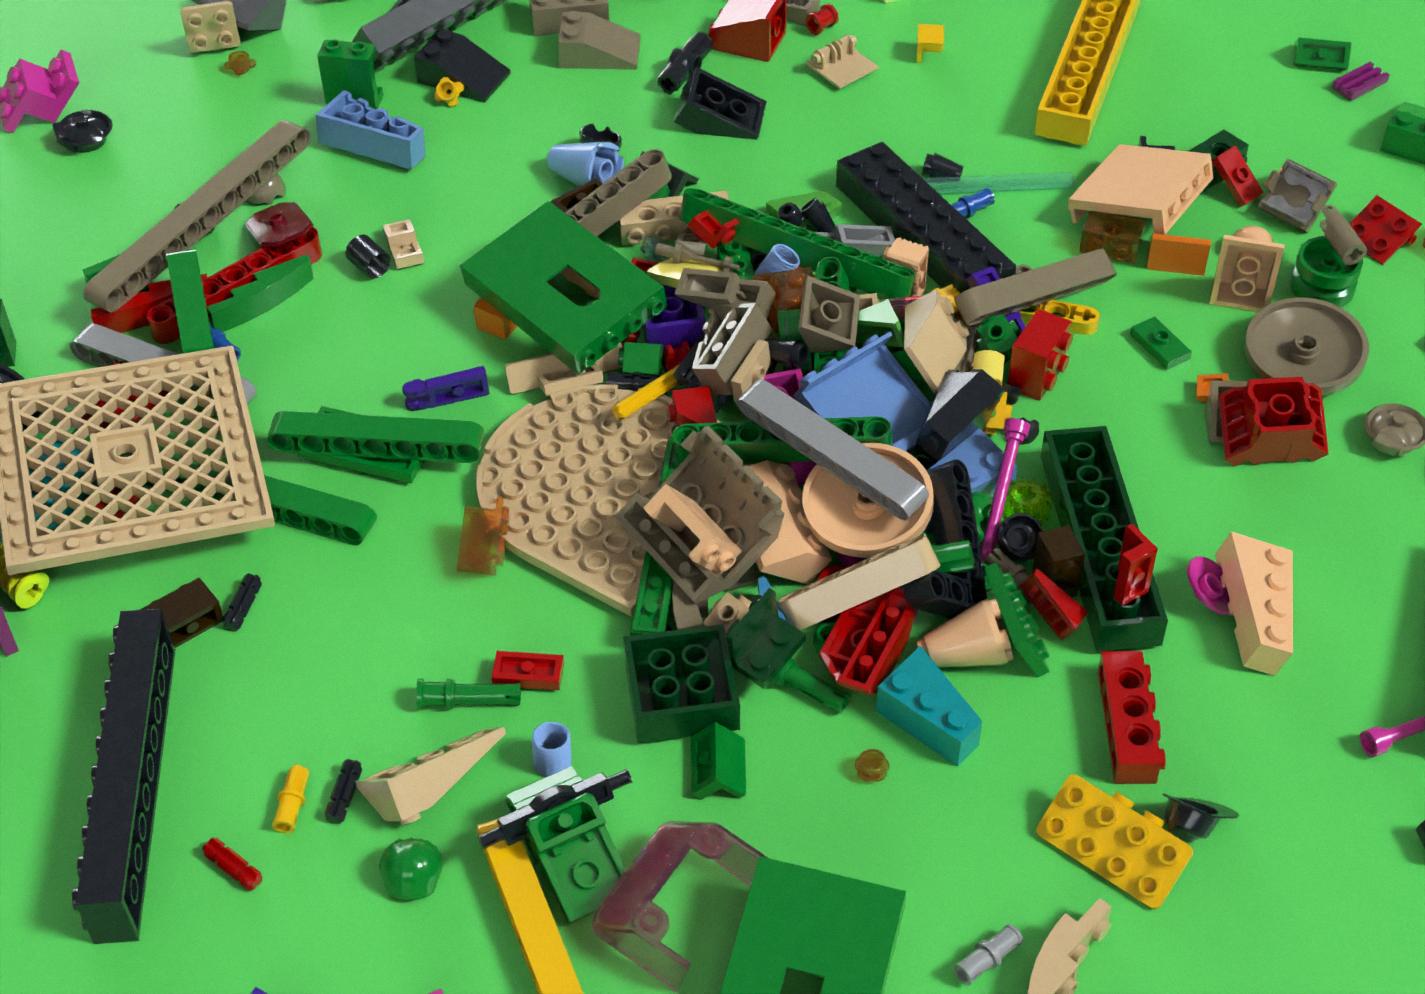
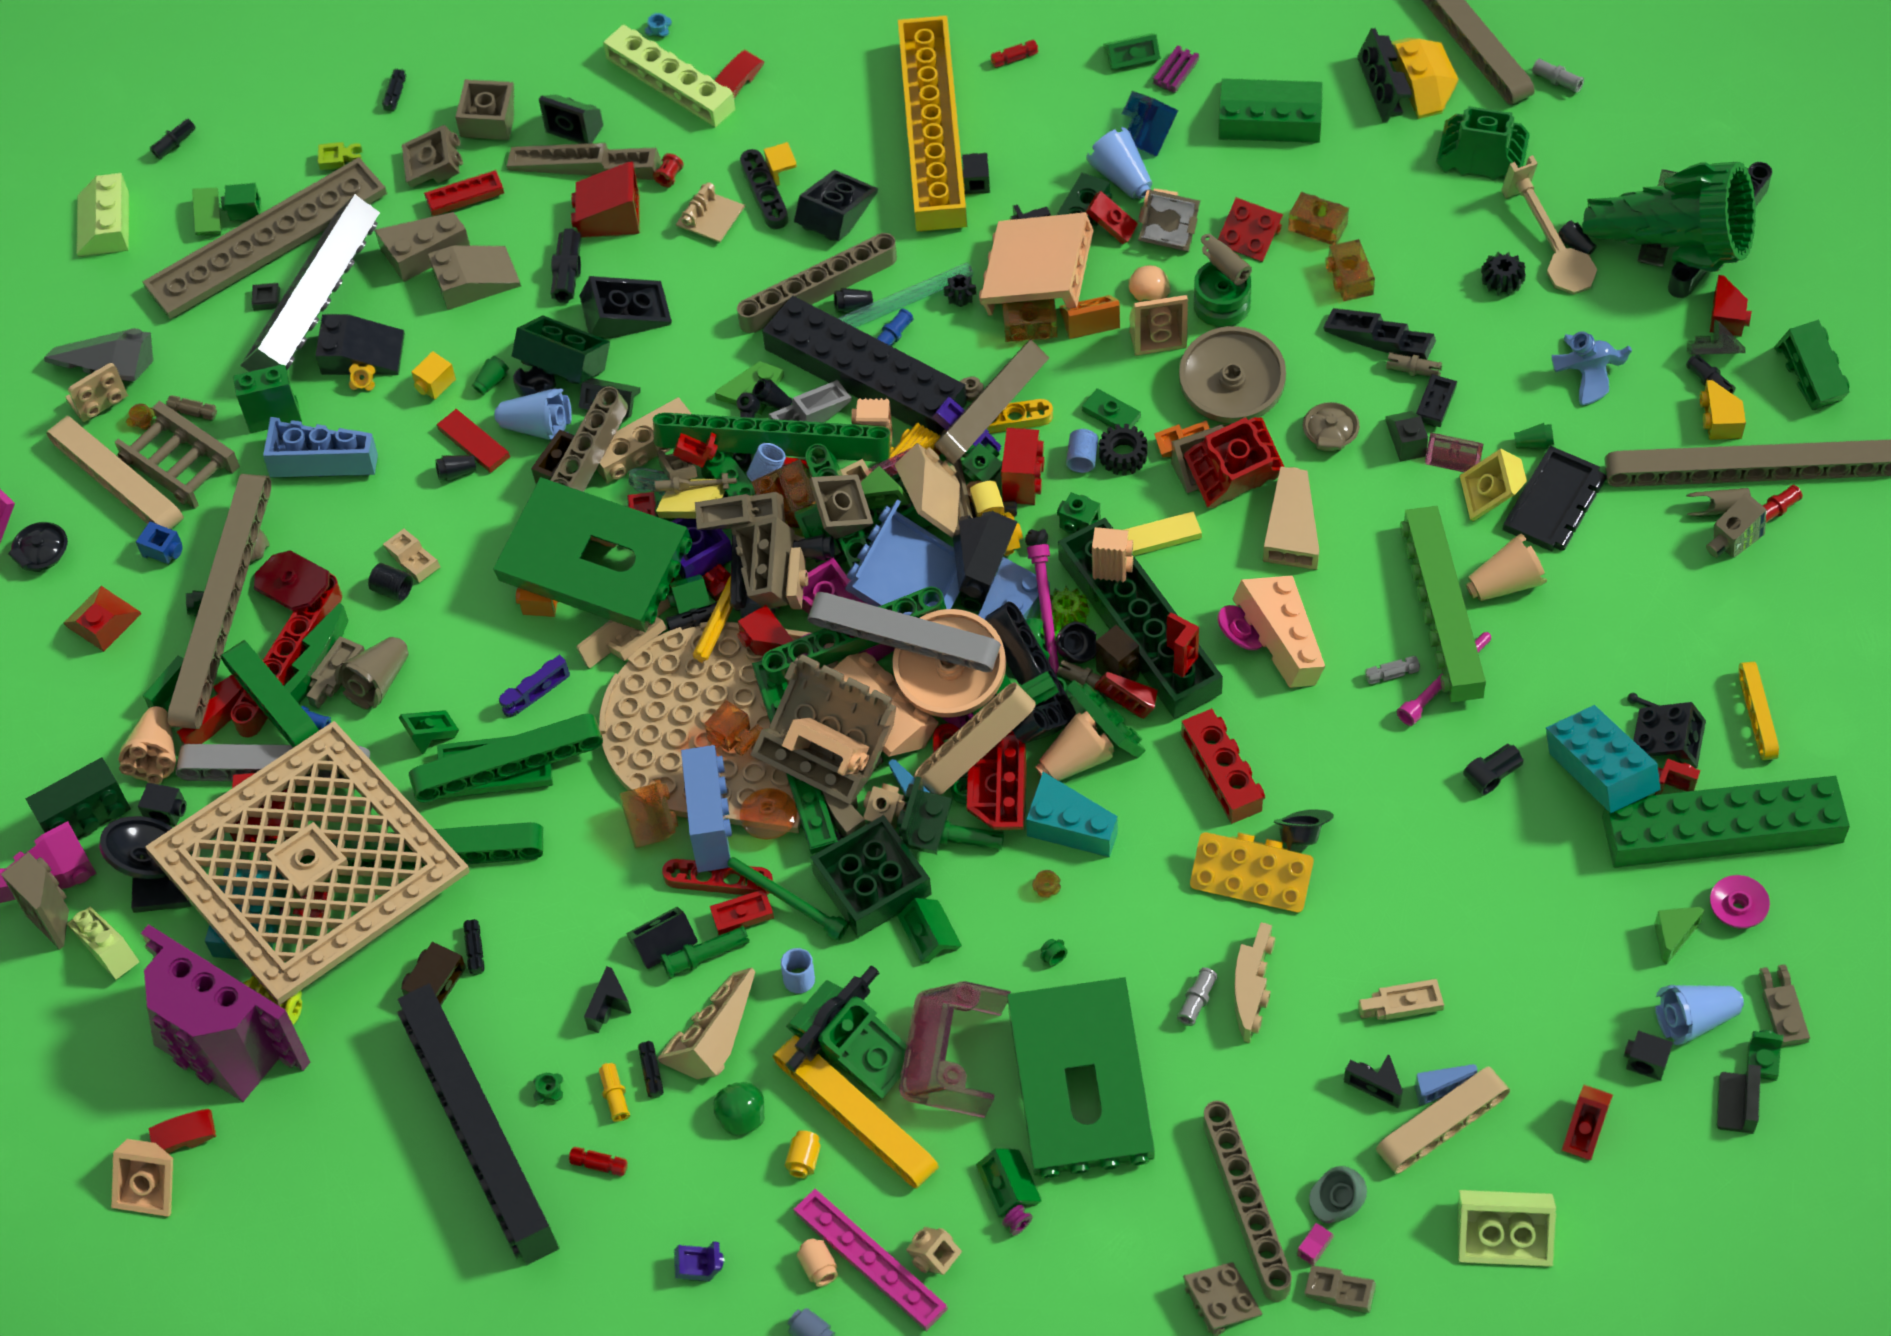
camera: 20 degrees left, 10 degrees up
(37, 362) = (162, 803): none -> black brick
(56, 317) = (149, 748): none -> light nougat cone
(98, 203) = (102, 618): none -> red slope
(186, 99) = (113, 474): none -> tan beam
(189, 166) = (159, 543): none -> blue brick
(225, 759) = (548, 1079): none -> green plate
(266, 84) = (184, 432): none -> dark tan fence
(269, 312) = (323, 678): none -> dark tan hinge
(287, 70) = (192, 407): none -> dark tan axle
(301, 321) = (372, 672): none -> dark tan cone
(318, 385) = (428, 726): none -> green slope
(339, 698) = (607, 996): none -> black slope
(432, 663) = (662, 935): none -> black panel
(450, 946) = (803, 1154): none -> yellow brick
(486, 185) = (454, 466): none -> black cone
(511, 107) = (433, 375): none -> yellow brick
(518, 172) = (473, 440): none -> red tile
(527, 624) = (714, 884): none -> red beam
(541, 553) = (707, 807): none -> medium blue wedge
(565, 124) = (490, 374): none -> green cone
(607, 584) = (770, 823): none -> clear orange dish
(609, 486) = (729, 726): none -> clear orange brick
(617, 722) = (833, 926): none -> green piece
(637, 119) = (560, 349): none -> dark green brick
(844, 840) = (1053, 951): none -> green plate
(904, 60) = (765, 188): none -> black beam
(913, 143) = (819, 280): none -> dark tan beam
(962, 89) = (834, 205): none -> black slope
(1052, 191) = (960, 290): none -> black gear
(1080, 413) = (1078, 513): none -> green brick
(1094, 454) = (1111, 554): none -> light nougat brick
(1112, 365) = (1082, 450): none -> light blue piece
(1116, 104) = (976, 173): none -> black brick
(1154, 390) = (1118, 437): none -> black tyre
(1163, 469) = (1164, 533): none -> light yellow tile
(1201, 25) = (1014, 53): none -> red axle
(1266, 131) = (1121, 163): none -> light blue cone
(1312, 111) = (1149, 121): none -> panel
(1312, 505) = (1291, 526): none -> tan slope
(1372, 690) = (1392, 670): none -> light grey axle

